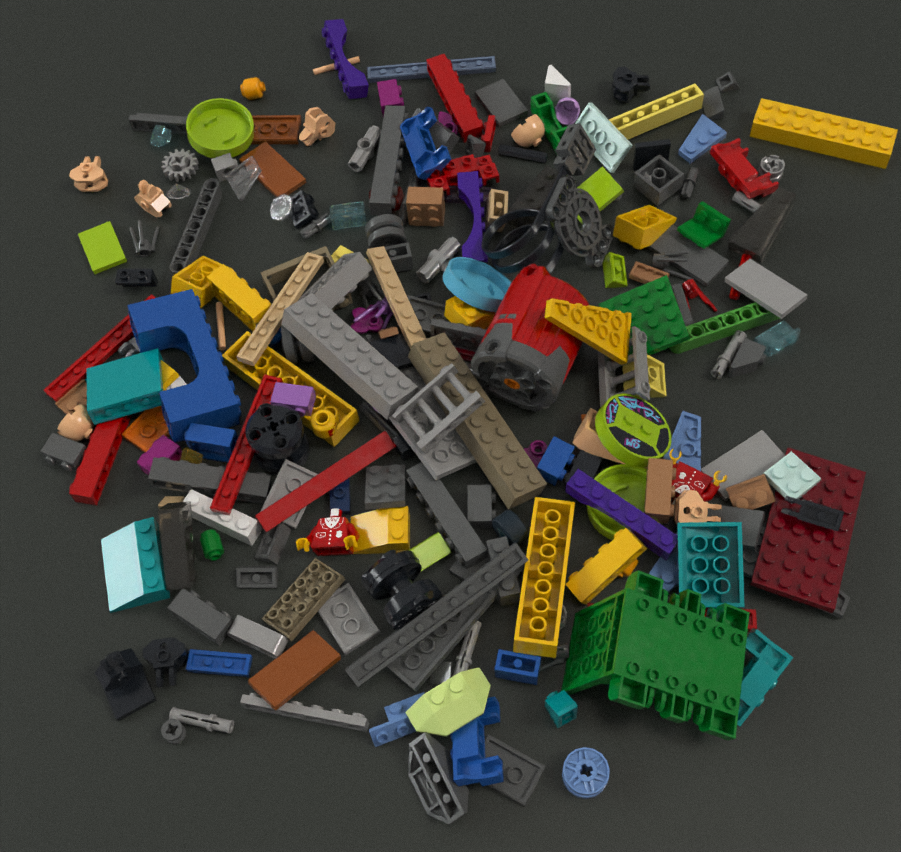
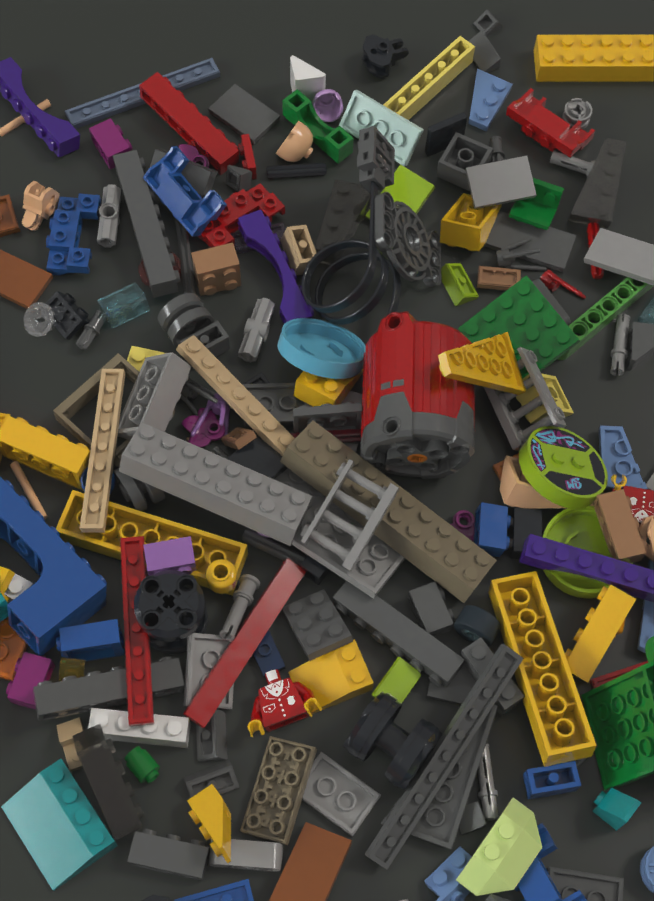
camera: 30 degrees left, 5 degrees up
(244, 599) = (215, 819): none -> yellow slope
(328, 153) = (66, 232): none -> blue bracket
(338, 449) = (242, 599): none -> light grey pin
(678, 200) = (500, 182): none -> light grey tile

